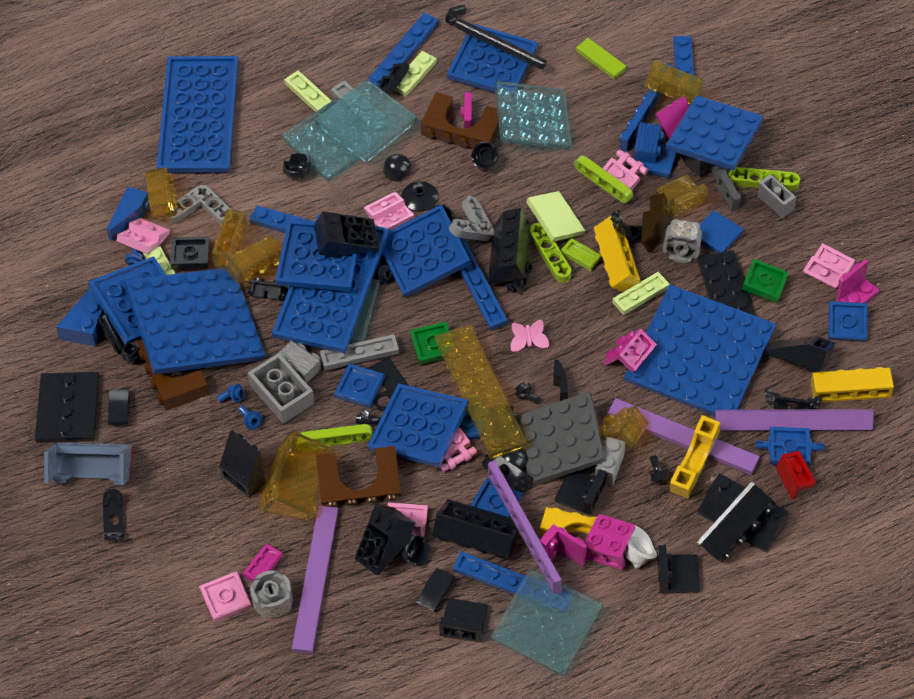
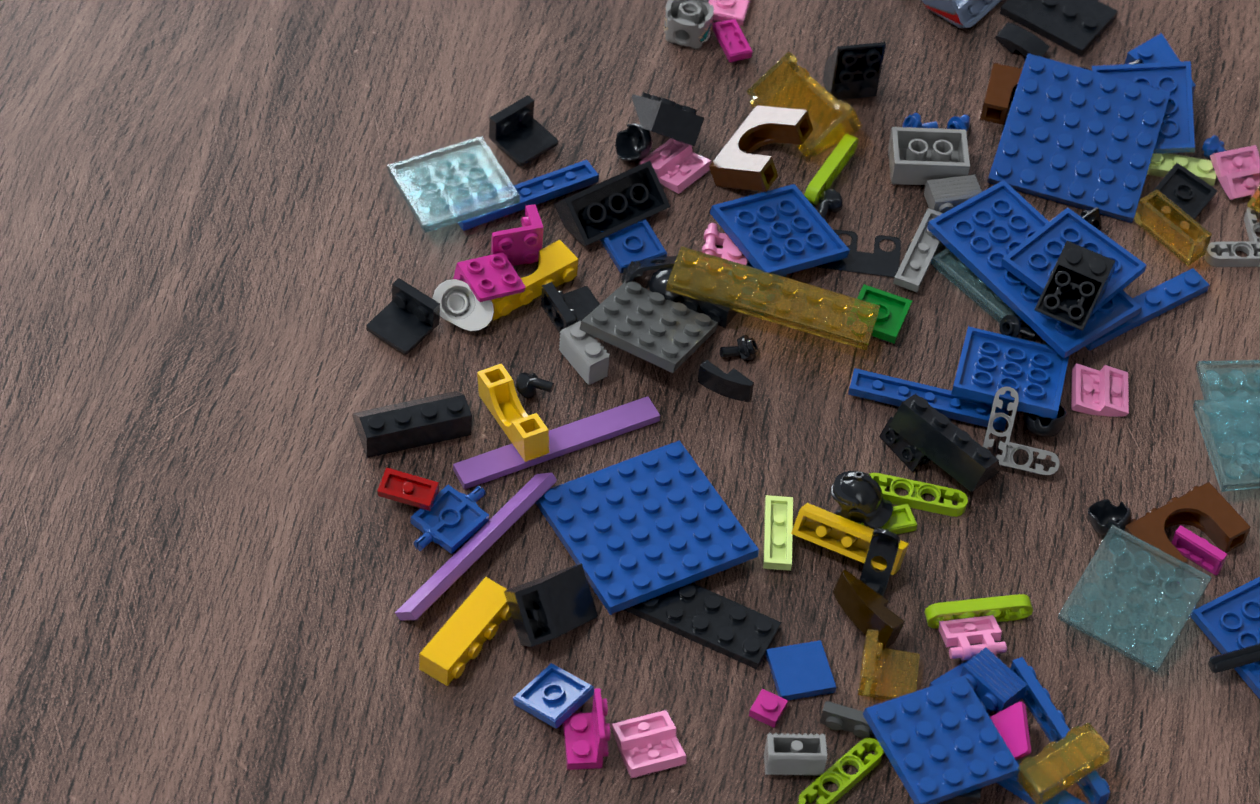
camera: 120 degrees right, 5 degrees down
(254, 259) = (1123, 221): clear yellow brick -> none
(297, 166) = (1236, 343): black hair -> none
(315, 580) = (678, 67): medium lavender tile -> none
(359, 385) = (880, 229): blue tile -> none
(396, 167) = (1165, 437): black hair -> none
(420, 196) = (1105, 437): black dish -> none
(435, 588) = (578, 138): black slope -> none
(524, 527) = (569, 216): medium lavender tile -> none
(528, 335) = (813, 400): bright pink piece -> none
(555, 216) = (961, 527): yellowish green tile -> none
(589, 266) = (861, 499): none -> black helmet
(601, 58) = (1185, 750): lime tile -> none
(627, 422) = (609, 380): clear yellow bracket -> none
(631, 349) = (702, 451): dark pink bracket -> none
(682, 240) = (811, 609): light grey brick -> none
(737, 522) = (394, 377): black slope -> none
(754, 232) = (768, 708): none -> dark pink plate
(765, 280) = (684, 655): green plate -> none
(779, 402) = (514, 547): black piece -> none

